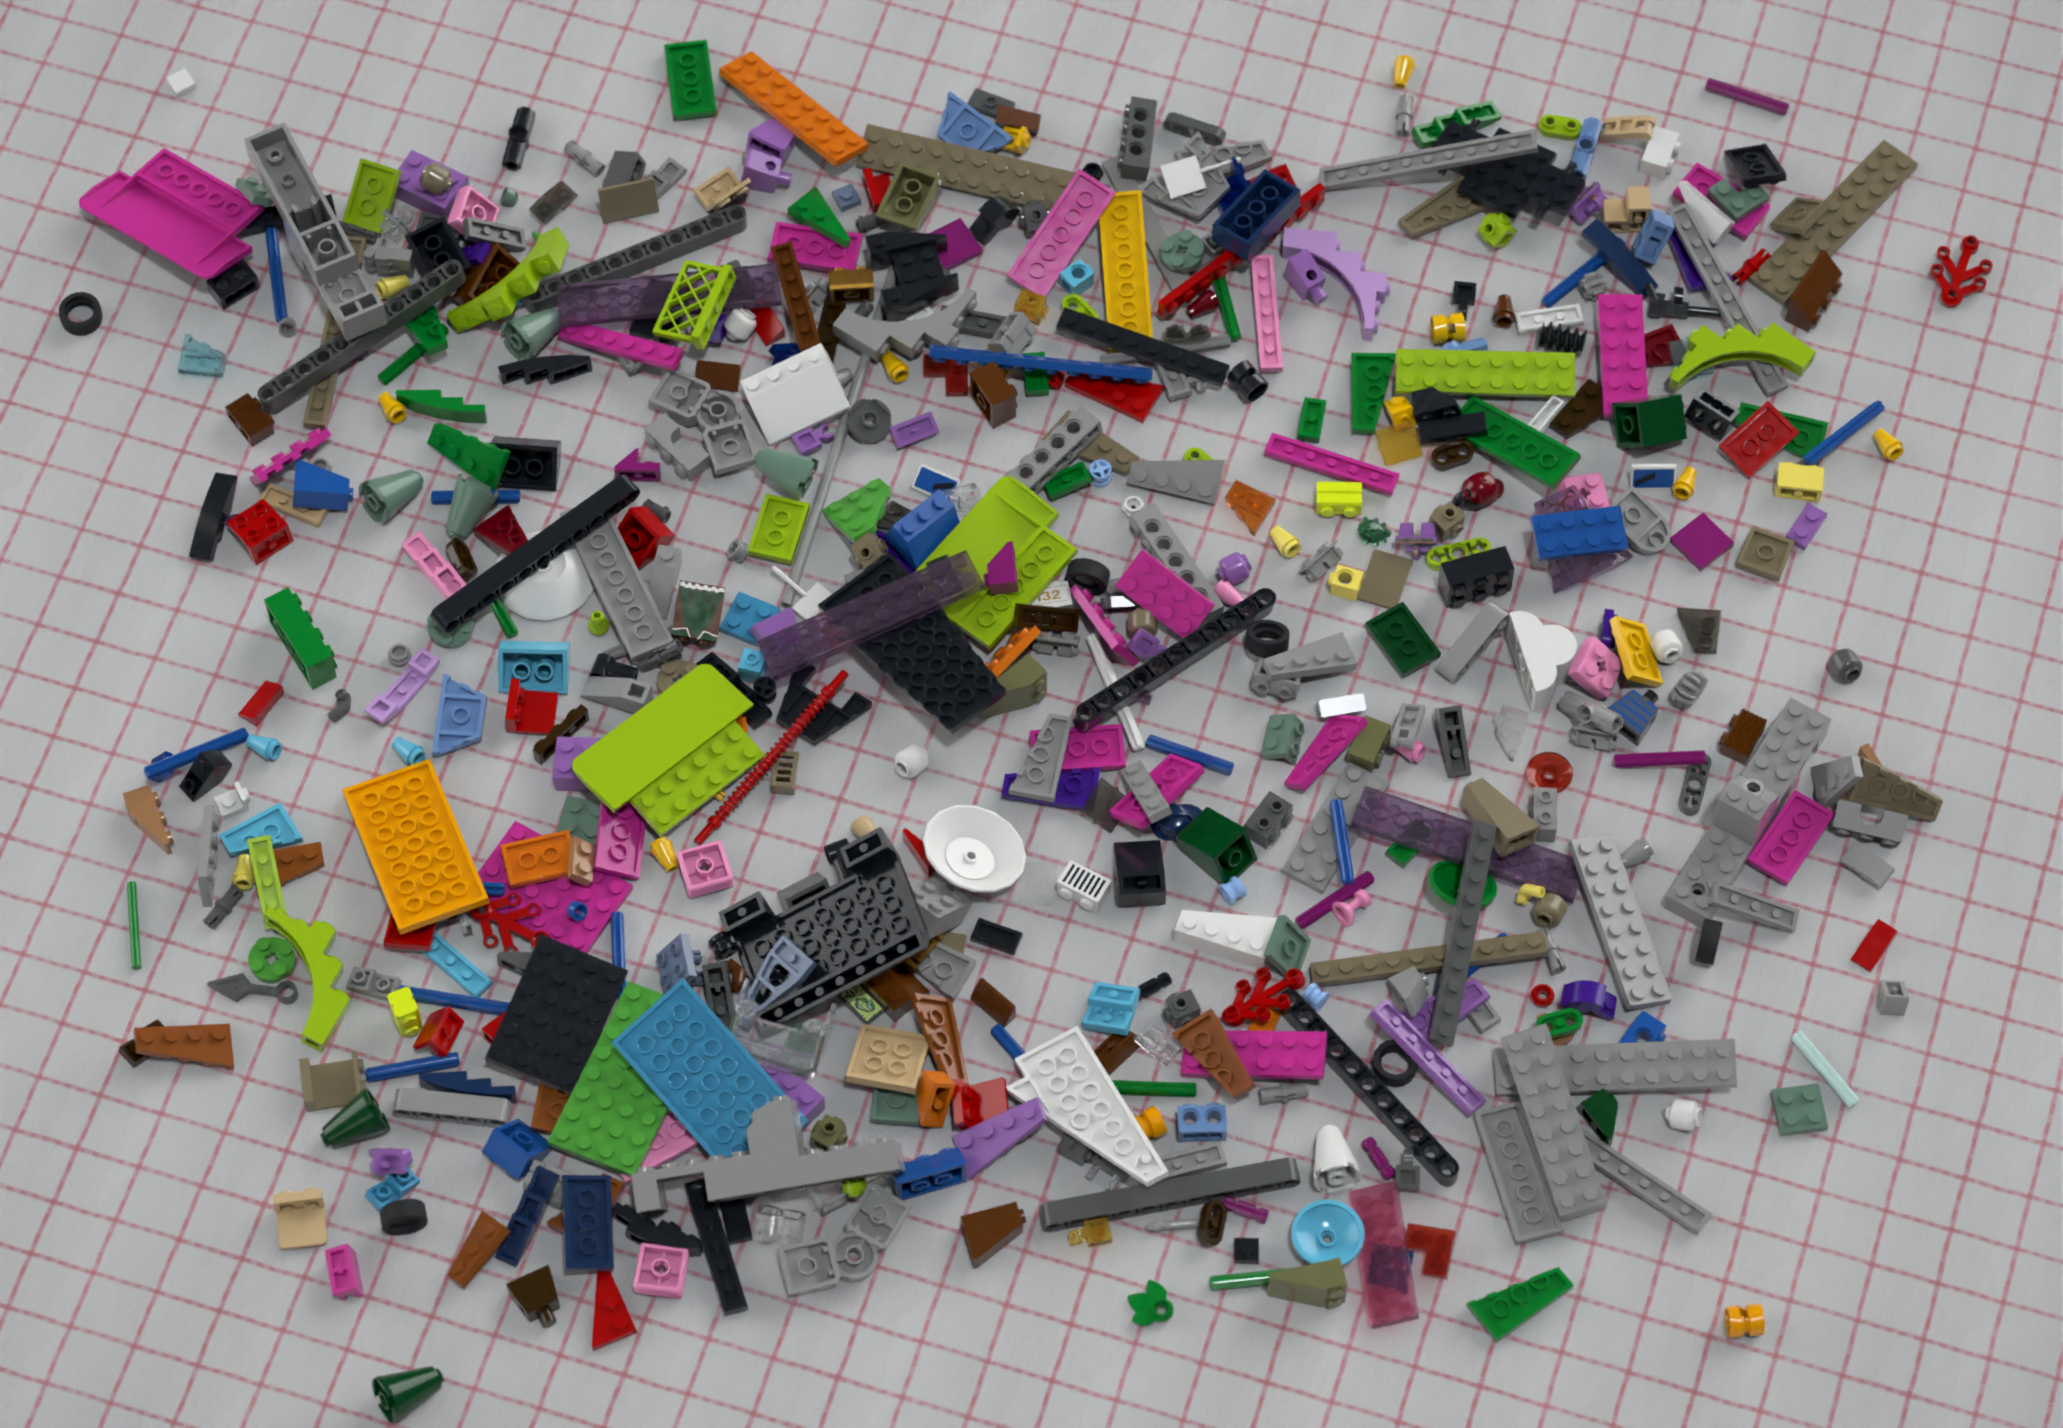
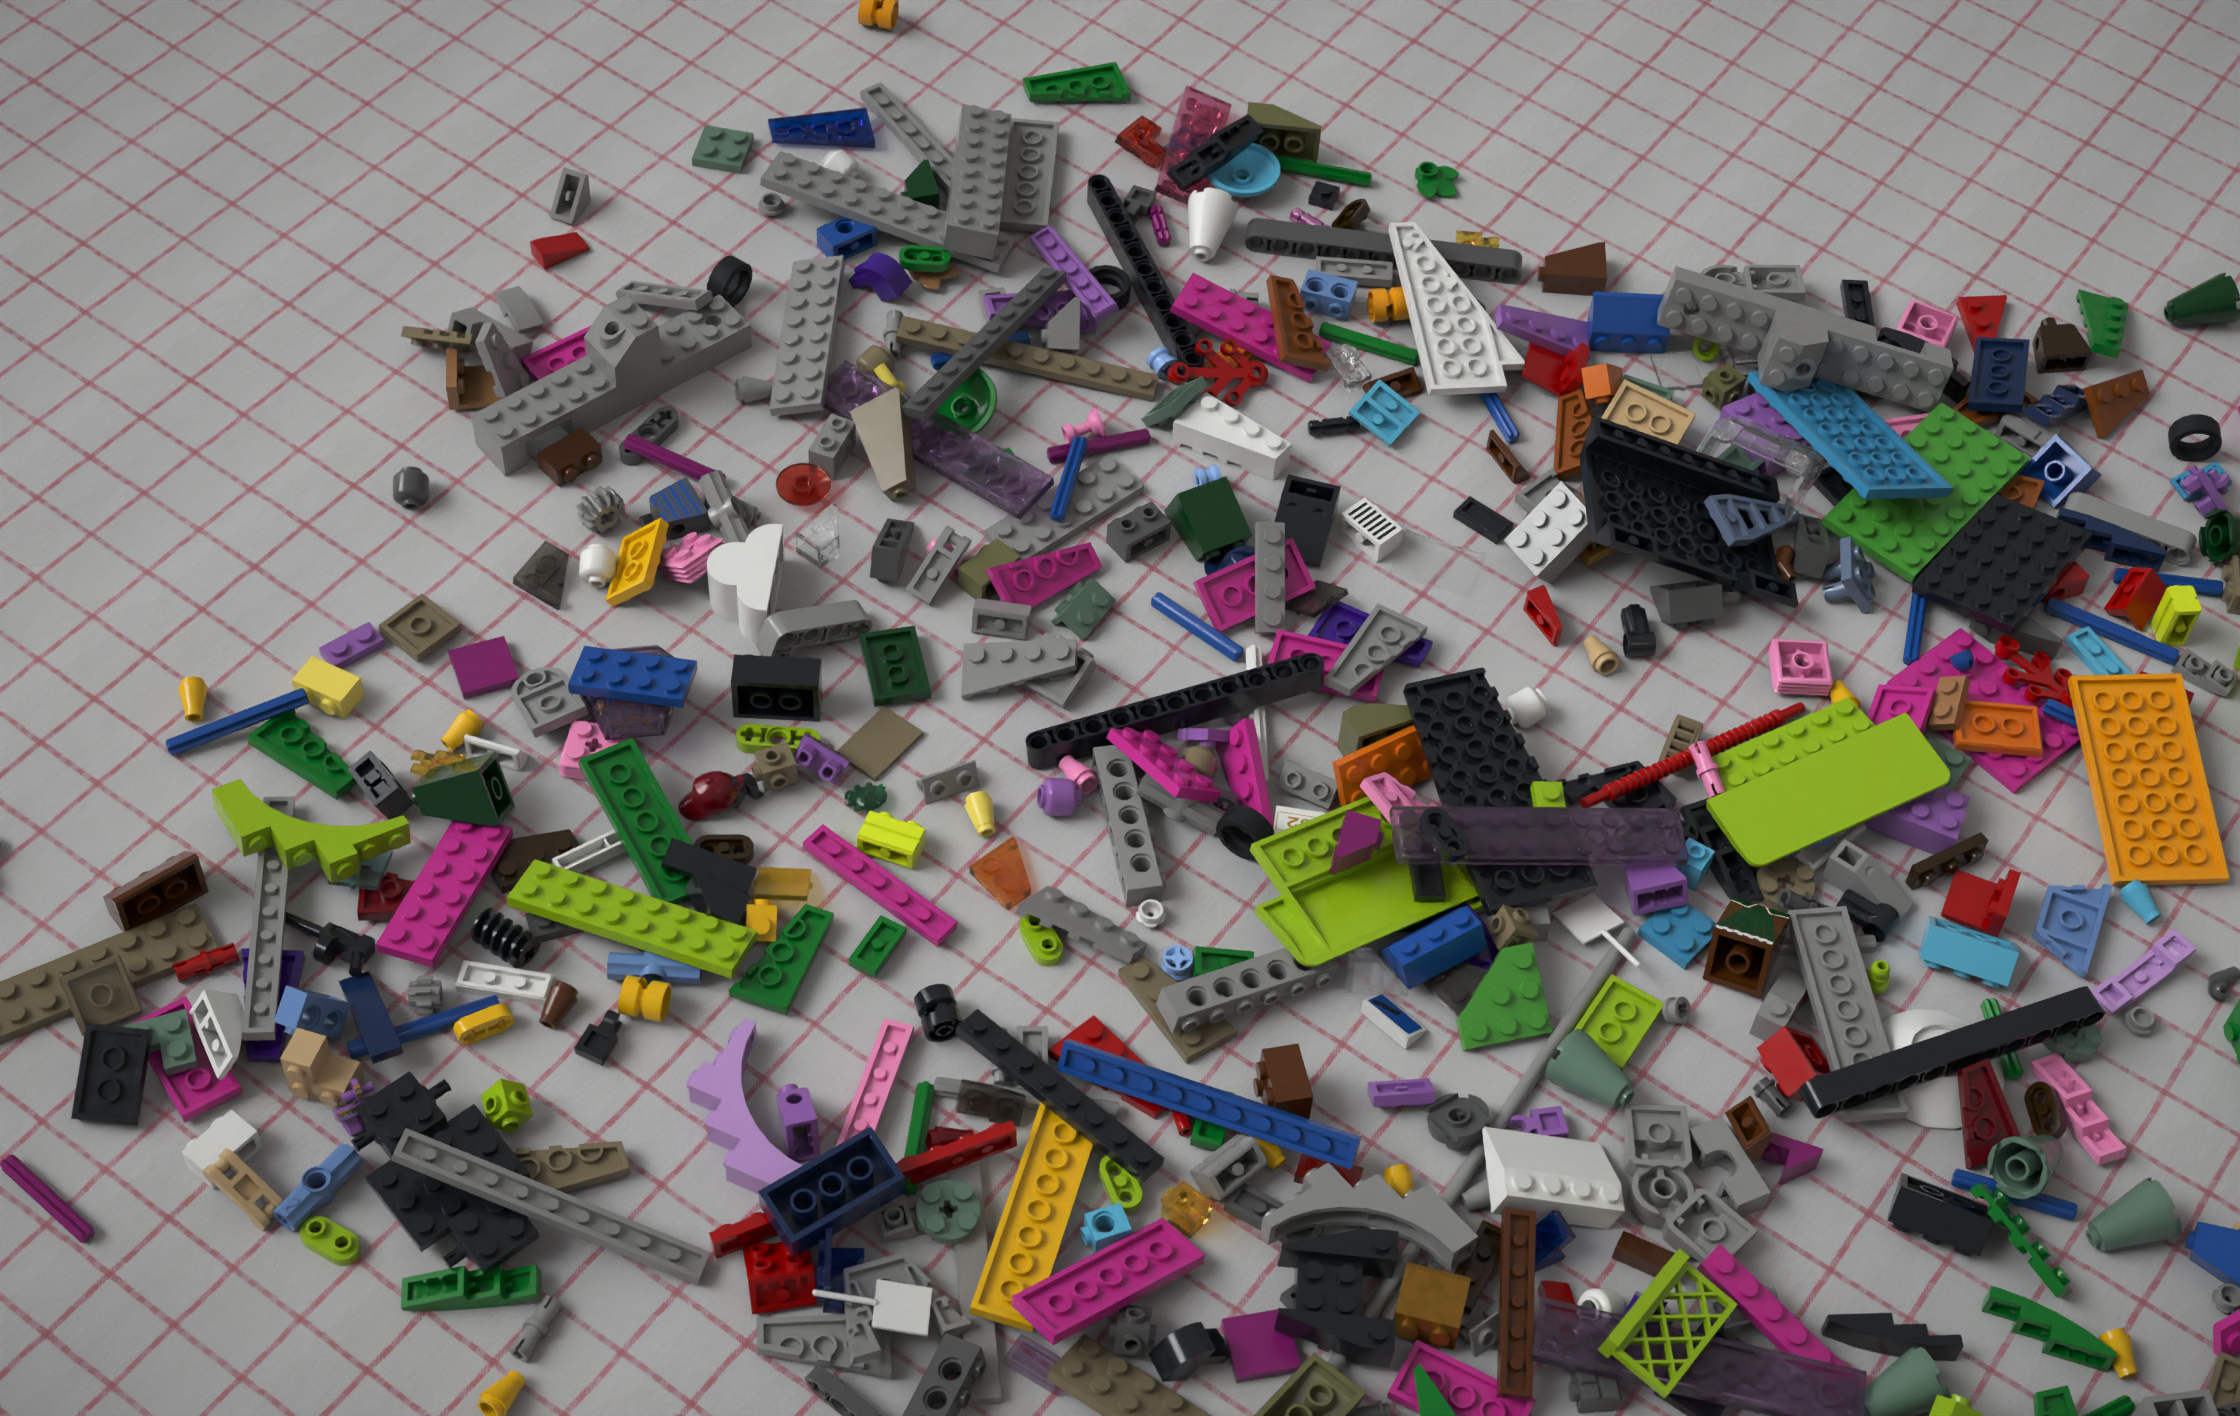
camera: 165 degrees left, 10 degrees down
(498, 1339) = (2105, 321): none -> green wing
(669, 468) = (1750, 1127): none -> reddish brown slope
(722, 945) = (1803, 592): black wheel -> none
(758, 735) = (1707, 769): none -> bright pink pin
(872, 646) = (1547, 794): none -> lime plate
(940, 565) = (1446, 835): none -> black plate
(974, 848) = (1483, 559): white dish -> none
(984, 621) = (1388, 792): none -> bright pink wing
(1046, 617) = (1317, 797): dark brown plate -> none
(1093, 168) = (1024, 1379): black plate -> none
(1181, 1008) = (1309, 387): dark grey brick -> none
(1267, 629) = (1054, 682): black tyre -> none
(1348, 591) = (930, 742): light yellow brick -> none
(1355, 1222) = (1215, 153): none -> black slope
(1542, 989) = (923, 303): red plate -> none
(1544, 282) = (483, 1024): none -> yellow beam
(1606, 635) = (653, 603): dark purple plate -> none
(1681, 451) = (430, 761): none -> clear yellow plate
(1713, 1165) = (831, 128): none -> clear blue wing
(1758, 439) = (344, 739): red plate -> none
(1825, 1069) = (677, 170): light aqua axle -> none

